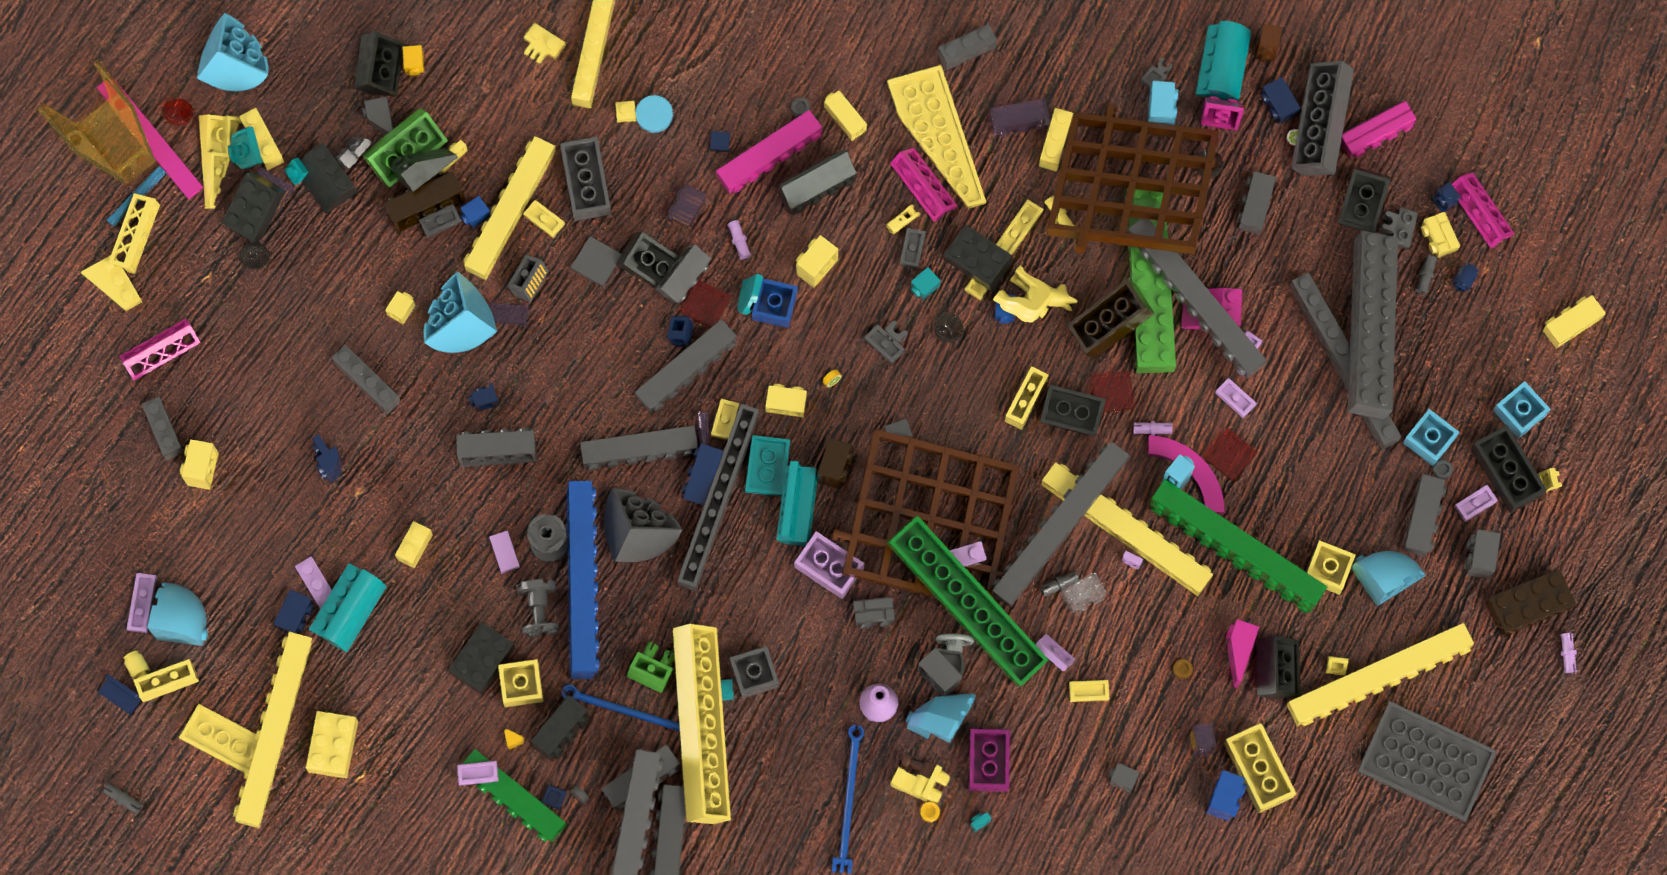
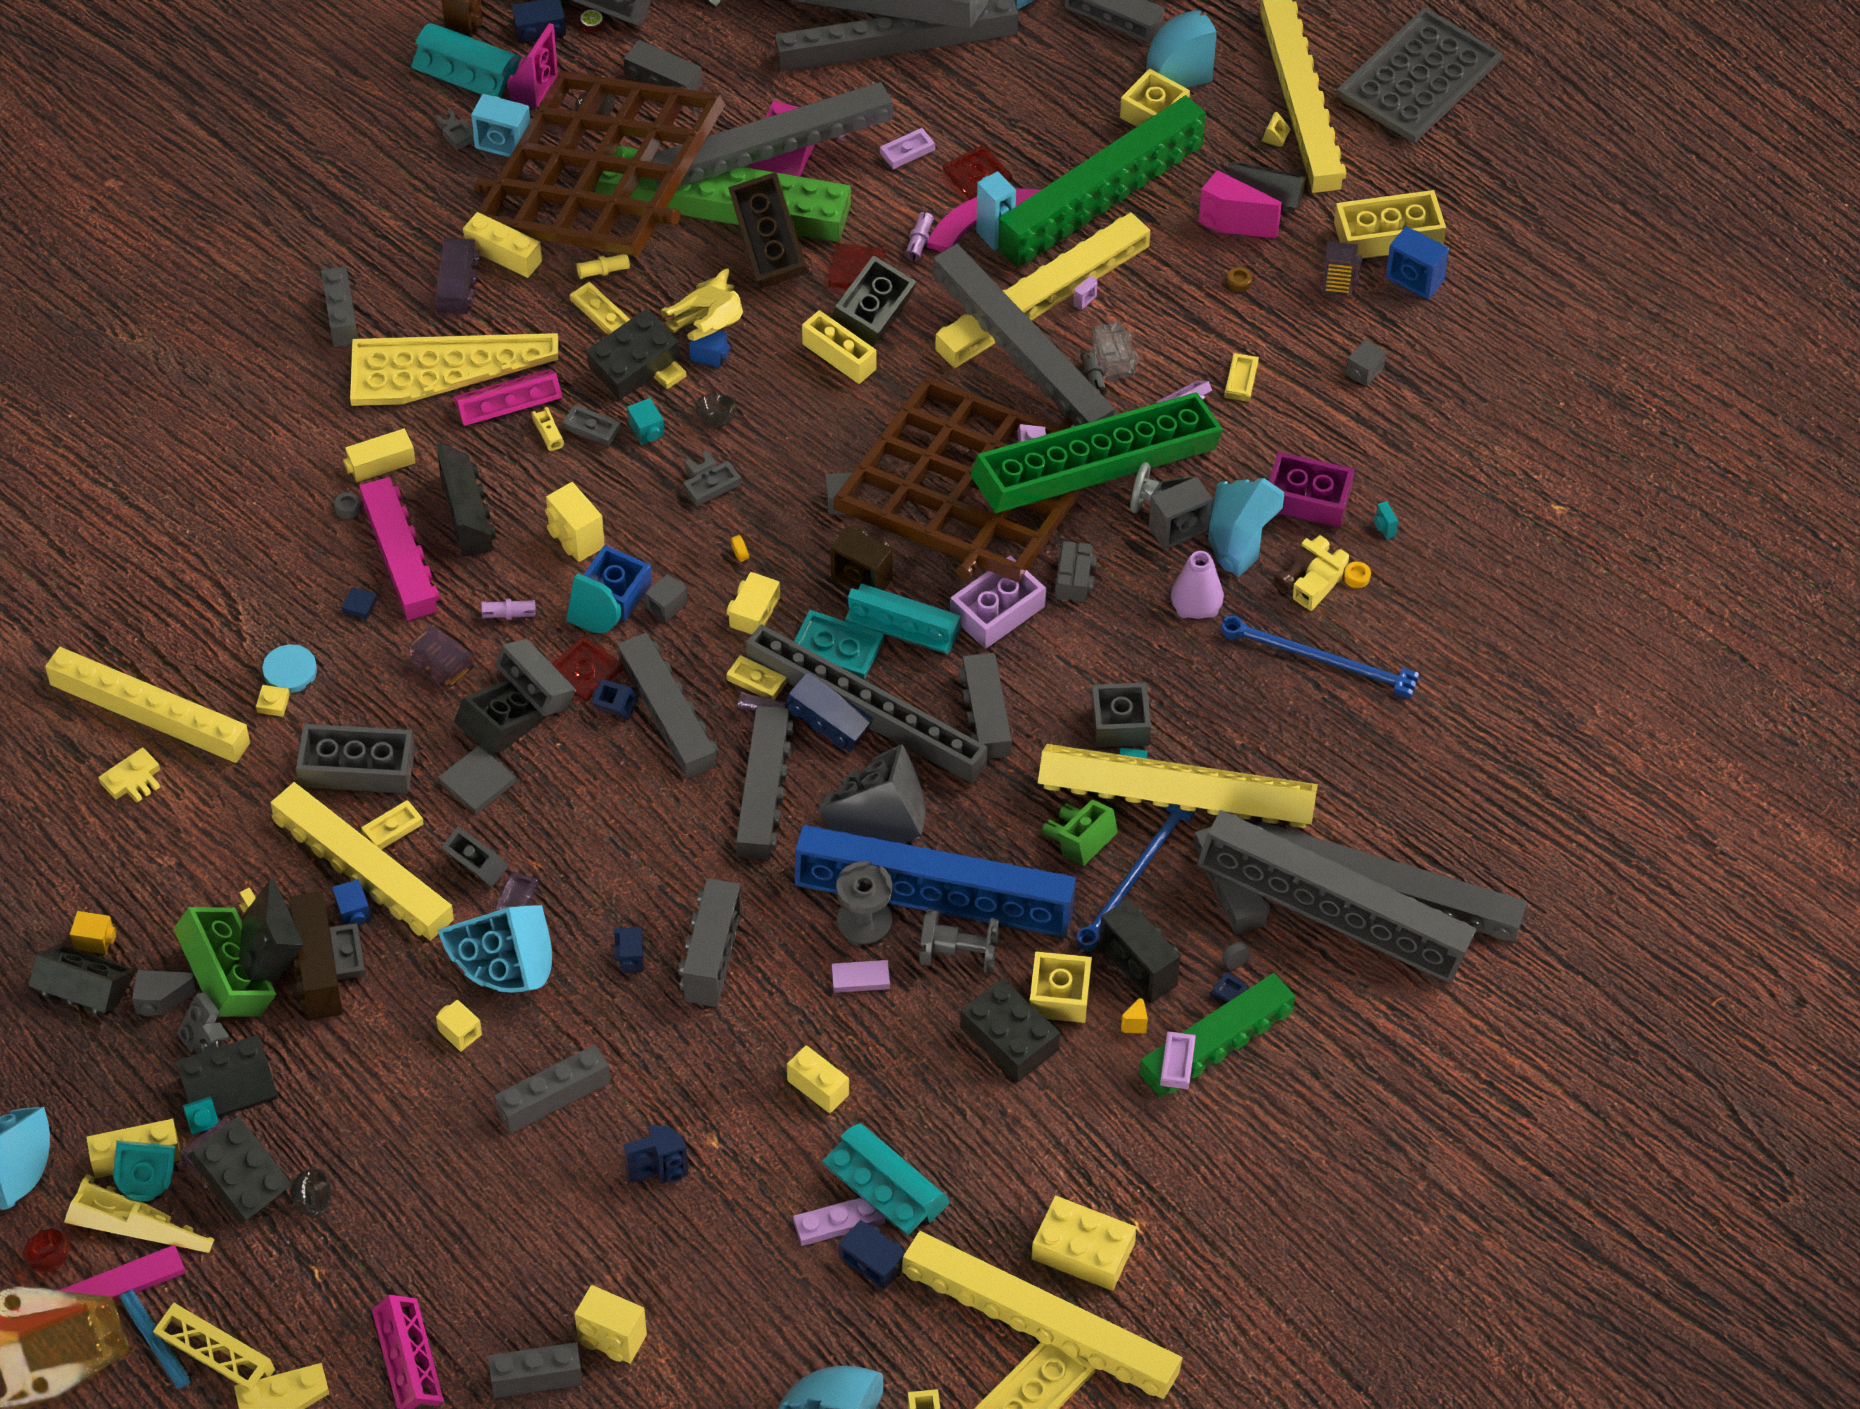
camera: 75 degrees left, 20 degrees down
(741, 579) = (985, 704): none -> dark grey brick
(776, 341) = (666, 598): none -> dark grey brick

